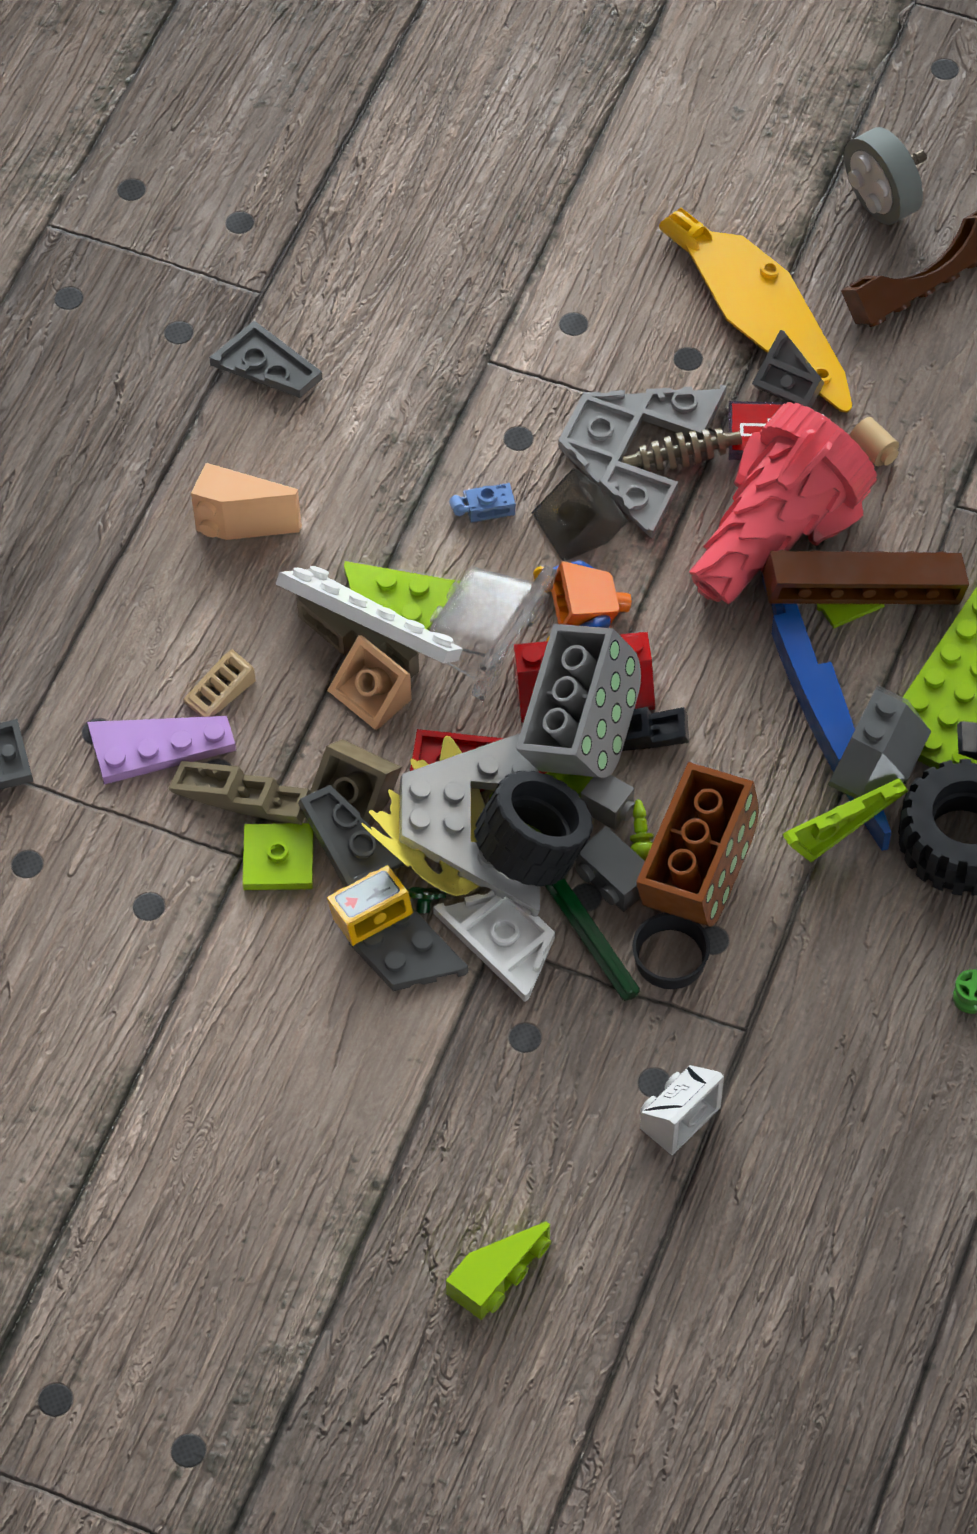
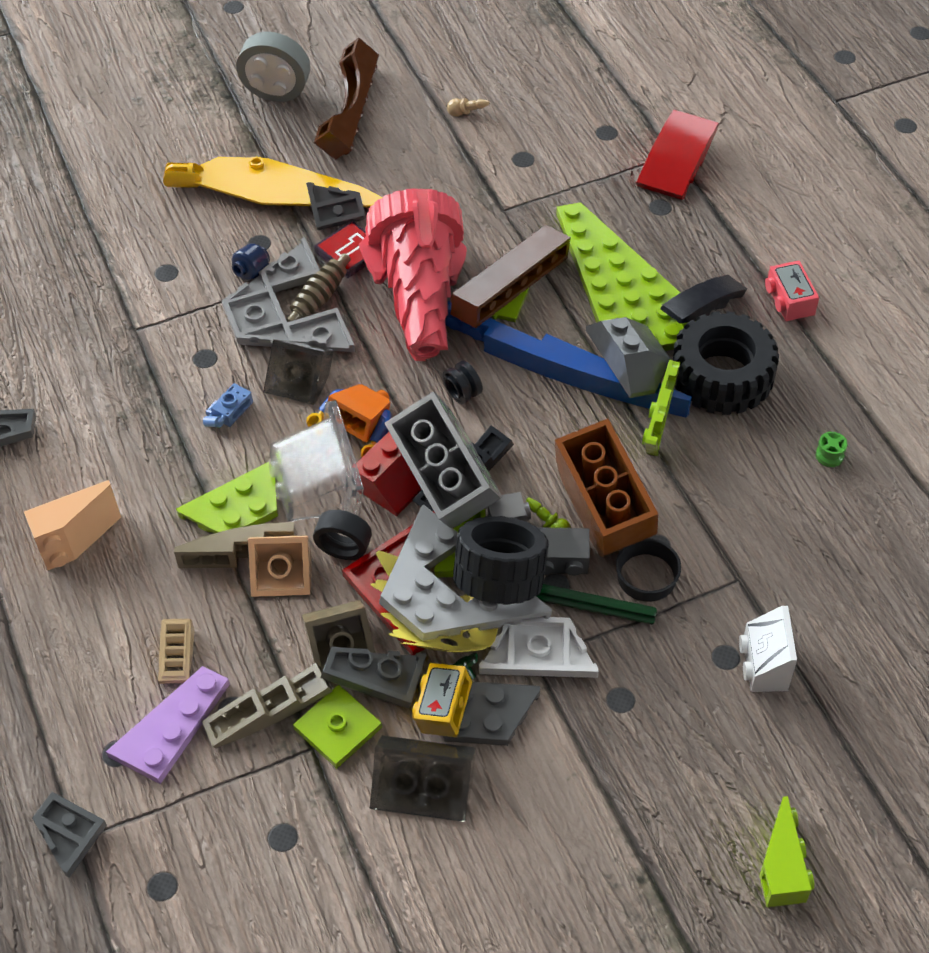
camera: 45 degrees left, 5 degrees down
(294, 953) = (422, 778): none -> clear smoke slope
(320, 589) = (172, 535): white wing -> none
(445, 698) = (345, 523): none -> black tyre
(651, 371) = (249, 261): none -> dark blue head
(706, 646) = (462, 382): none -> black wheel

